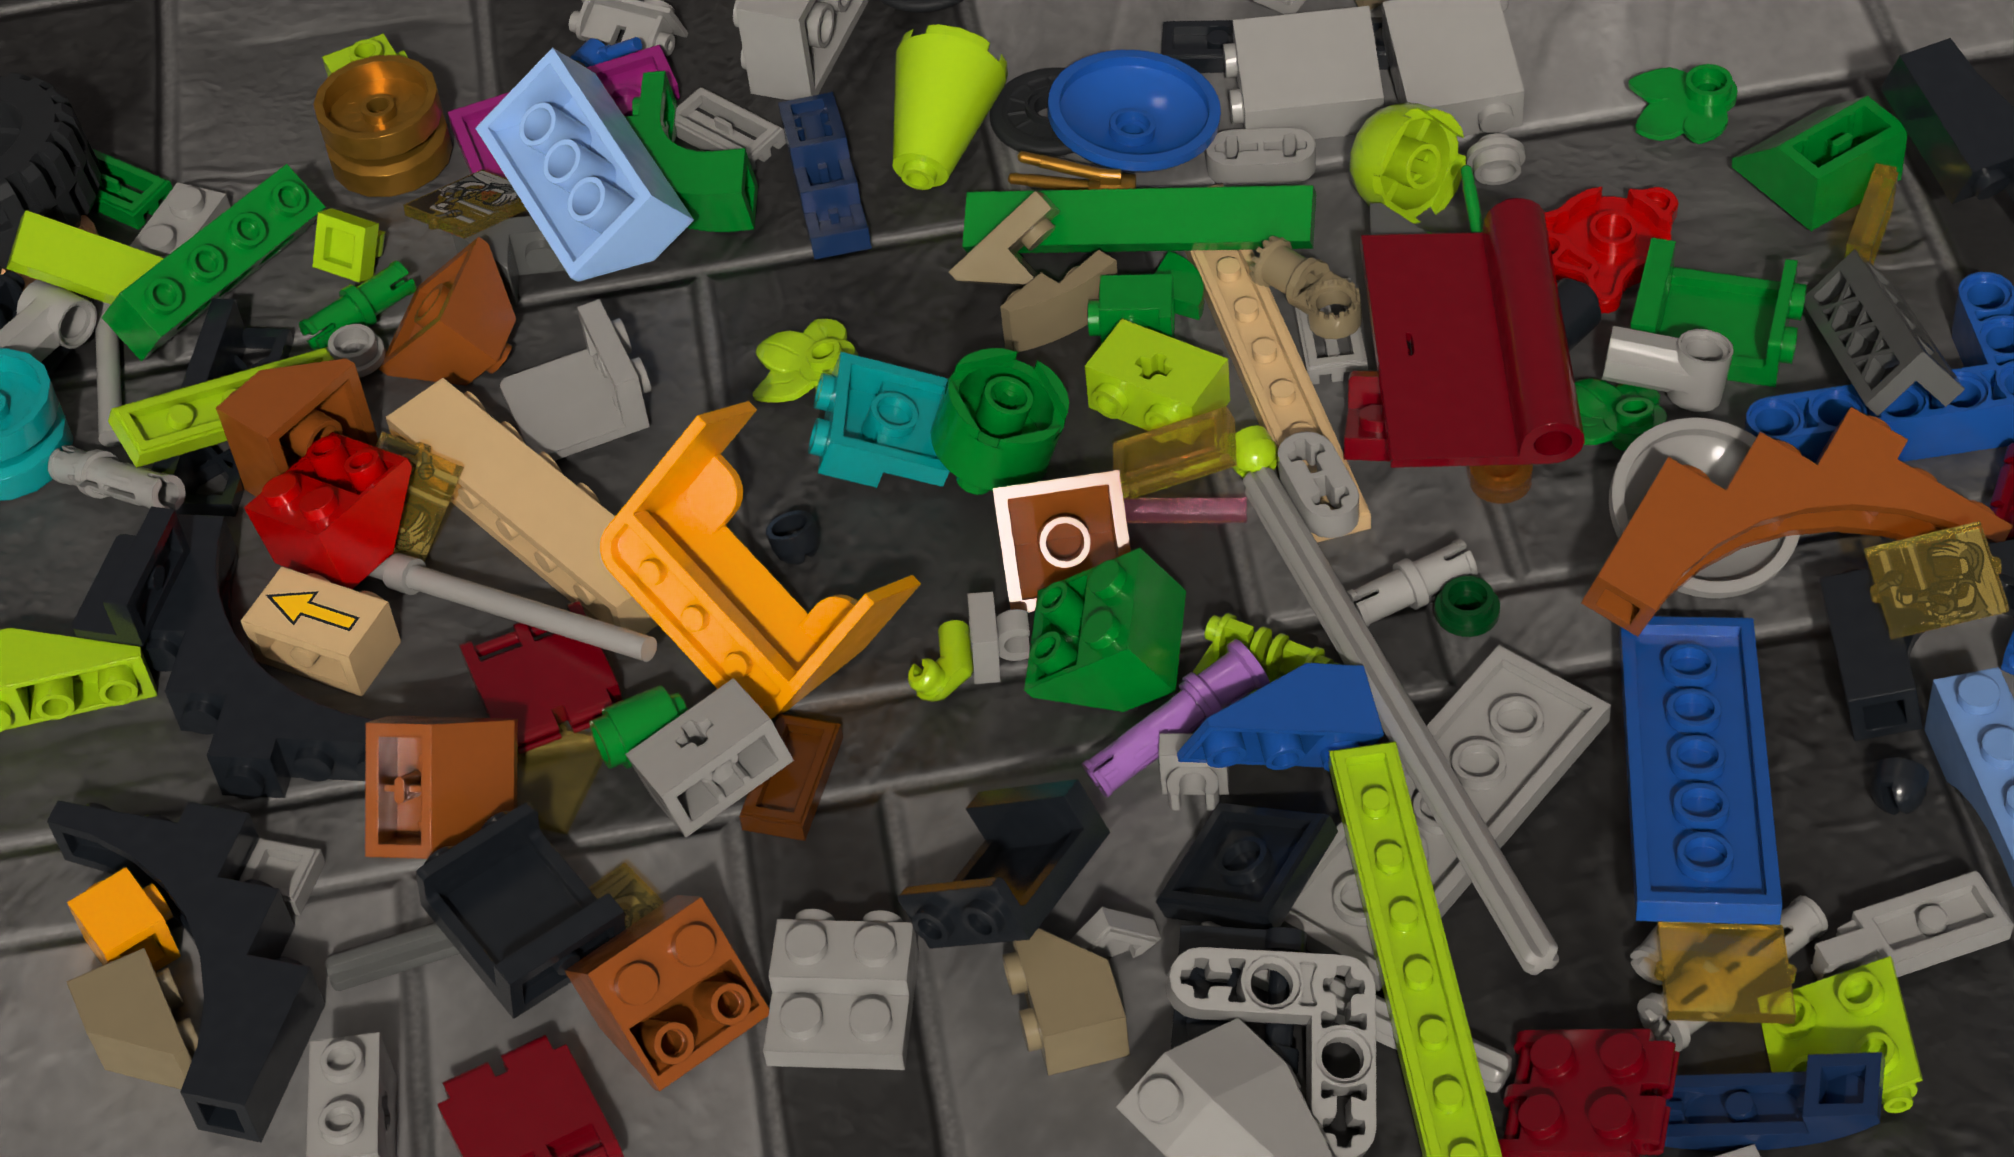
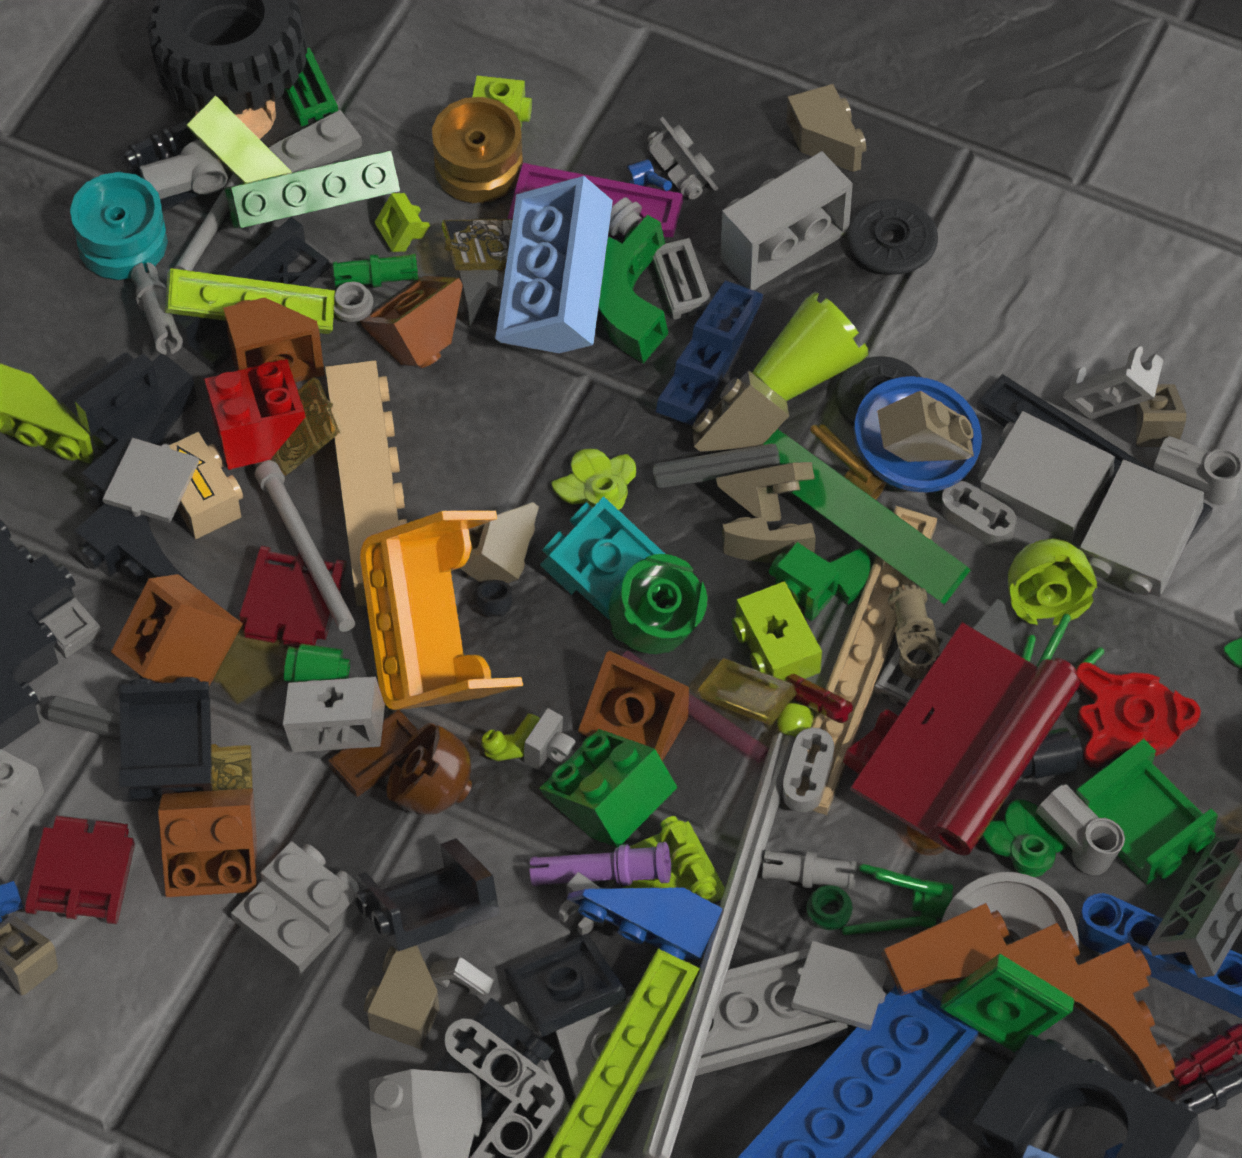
camera: 30 degrees right, 10 degrees up
(264, 646) = (151, 480): none -> light grey piece
(583, 395) = (450, 418): light grey bracket -> none
(620, 87) = (624, 216): none -> light grey plate
(766, 474) = (501, 545): none -> dark tan slope
(882, 743) = (432, 774): none -> reddish brown cylinder
(923, 201) = (742, 418): none -> dark tan slope
(929, 269) = (715, 465): none -> dark grey axle
(1148, 86) = (925, 430): none -> dark tan slope
(1274, 408) = (820, 699): none -> dark red axle
(1496, 159) = (1114, 613): light grey plate -> none
(1566, 530) = (928, 898): none -> green plant
(1566, 664) = (840, 985): none -> light grey piece
(1772, 555) = (1007, 1002): none -> green tile
(1936, 580) = (1085, 1084): clear yellow piece -> none

